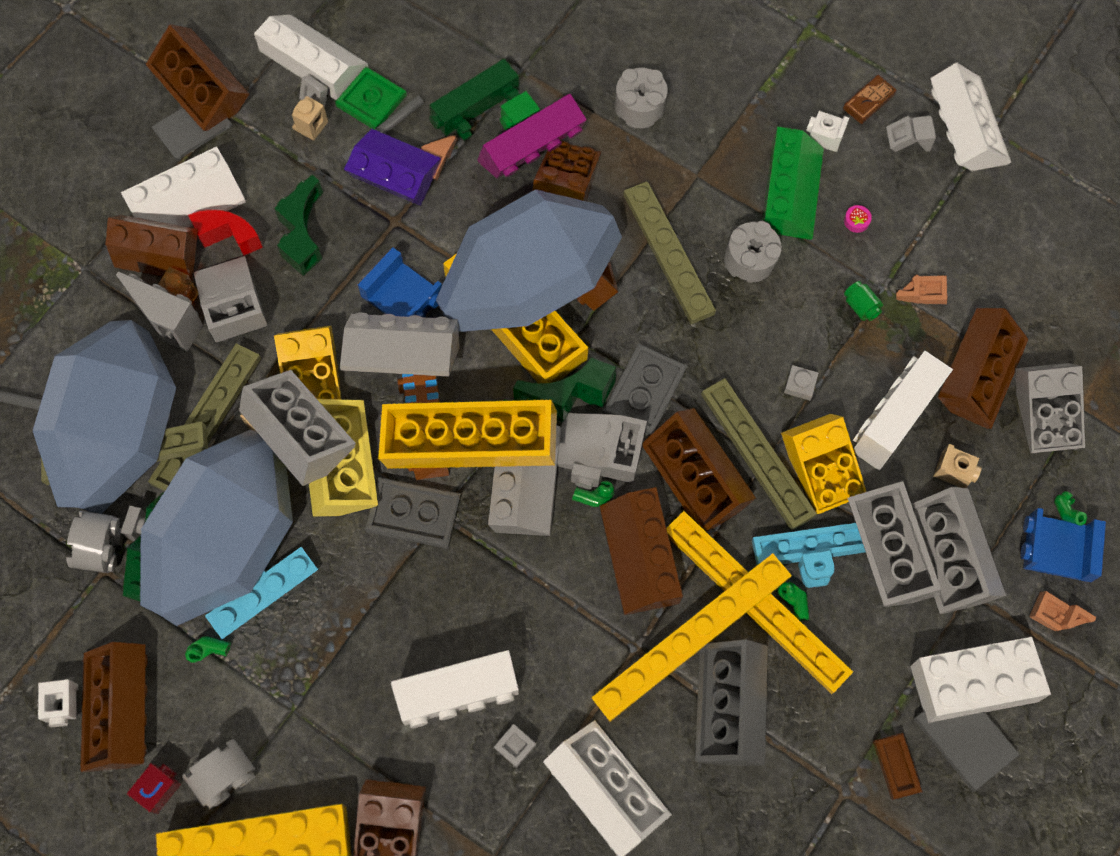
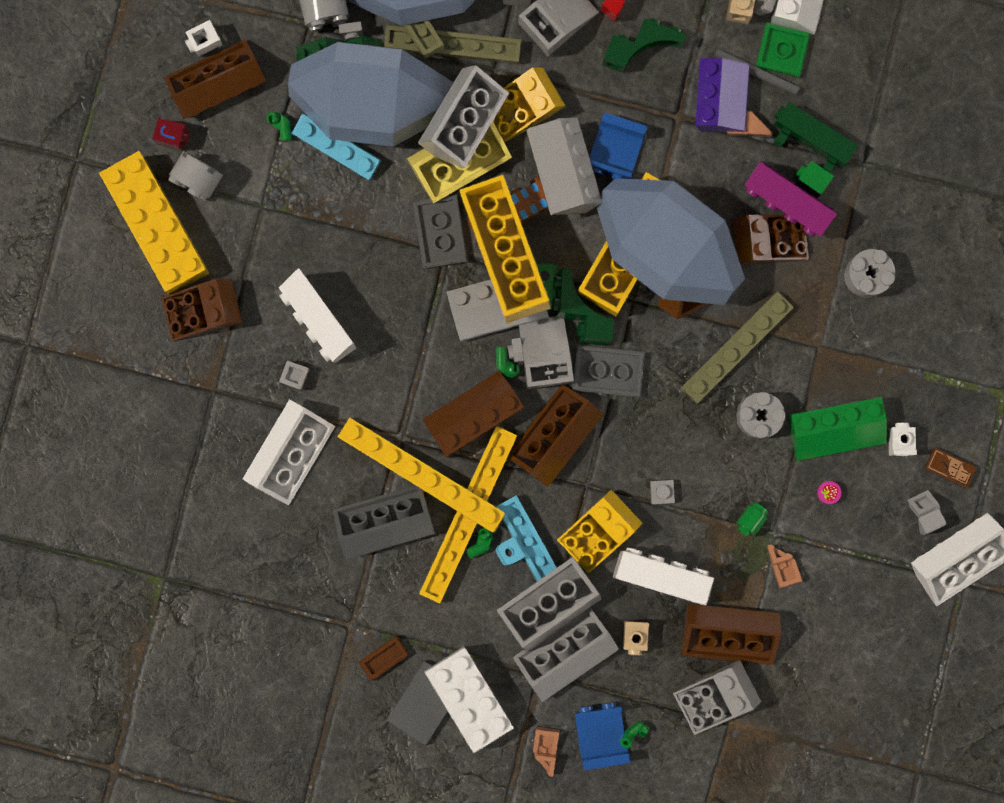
camera: 65 degrees right, 15 degrees up
(758, 454) = (587, 477): olive plate -> none

